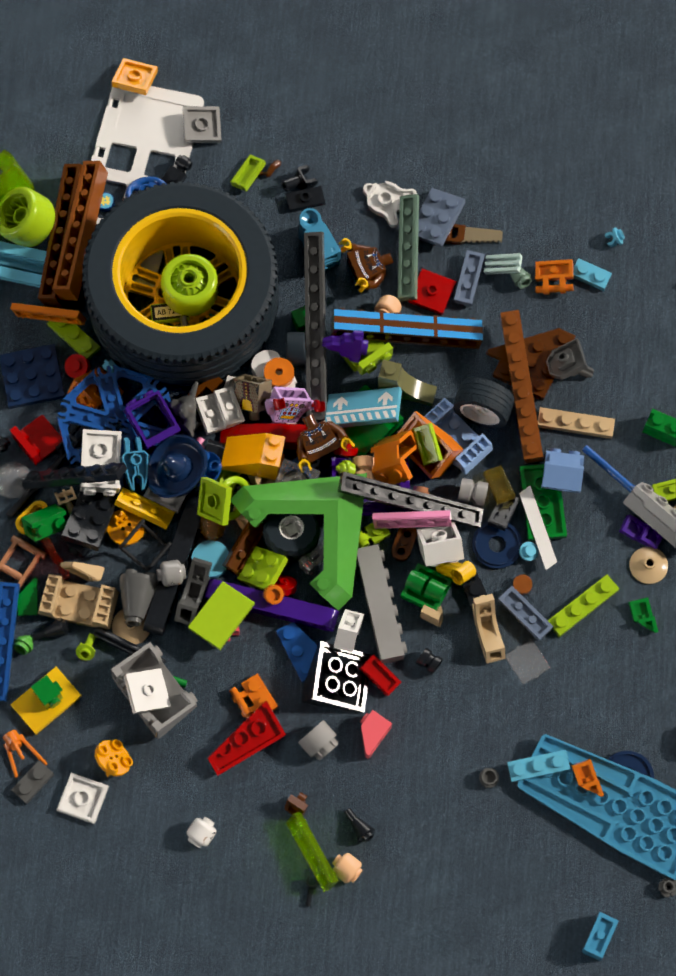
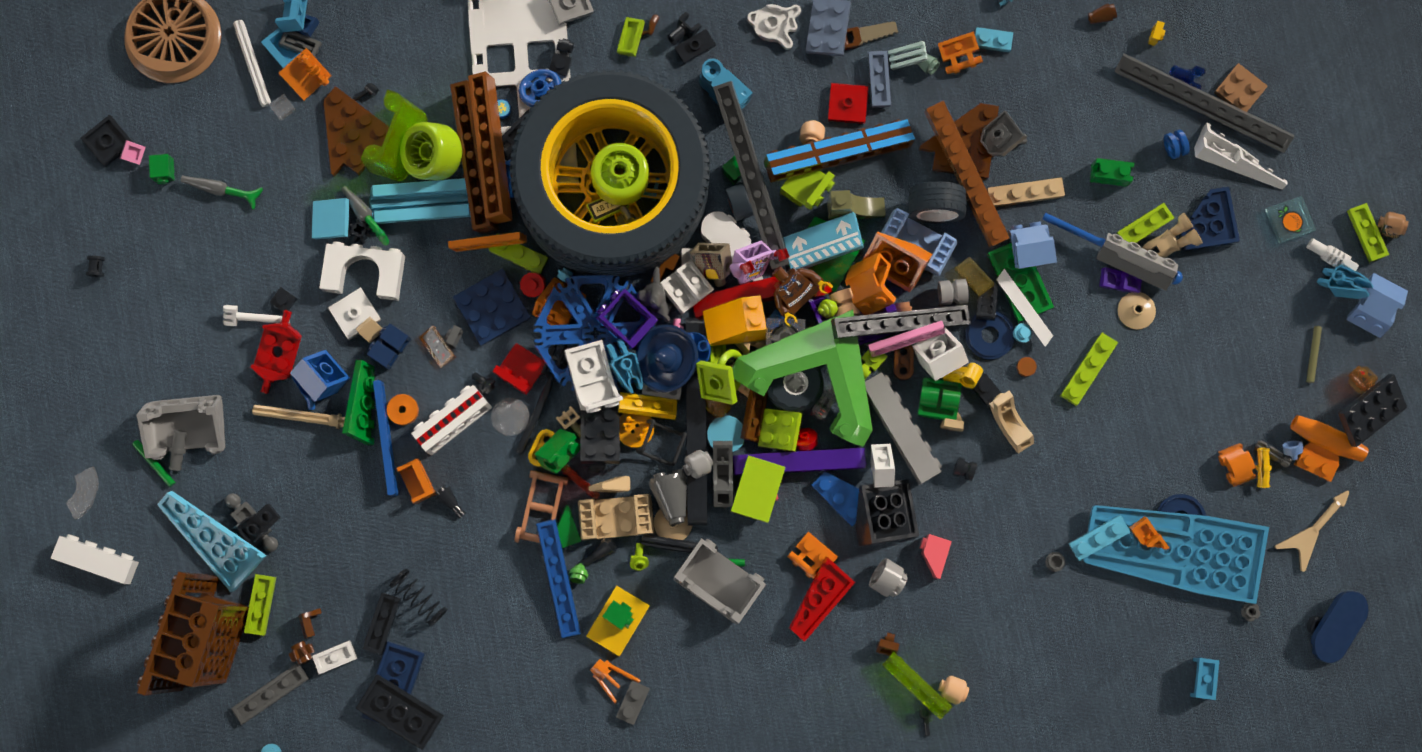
camera: 20 degrees left, 10 degrees up
(72, 476) = (573, 399): black plate -> none
(82, 798) = (685, 702): white tile -> none
(113, 758) = (702, 657): light orange plate -> none
(147, 691) = (713, 585): white plate -> none
(201, 832) = (807, 700): white head -> none
(273, 594) = (800, 453): orange tile -> none
(282, 365) = (735, 224): orange piece -> none
(348, 345) = (791, 185): dark purple rock -> none
(362, 830) = (954, 648): black cone -> none
(365, 264) = (777, 96): reddish brown torso -> none
(380, 675) = (923, 496): red tile -> none
(408, 247) = (811, 66): sand green tile -> none
(427, 444) = (899, 261): lime tile -> none
(525, 613) = (1038, 394): sand blue plate -> none
(527, 662) = (1054, 439): clear piece -> none
(642, 614) = (1146, 359): green slope -> none

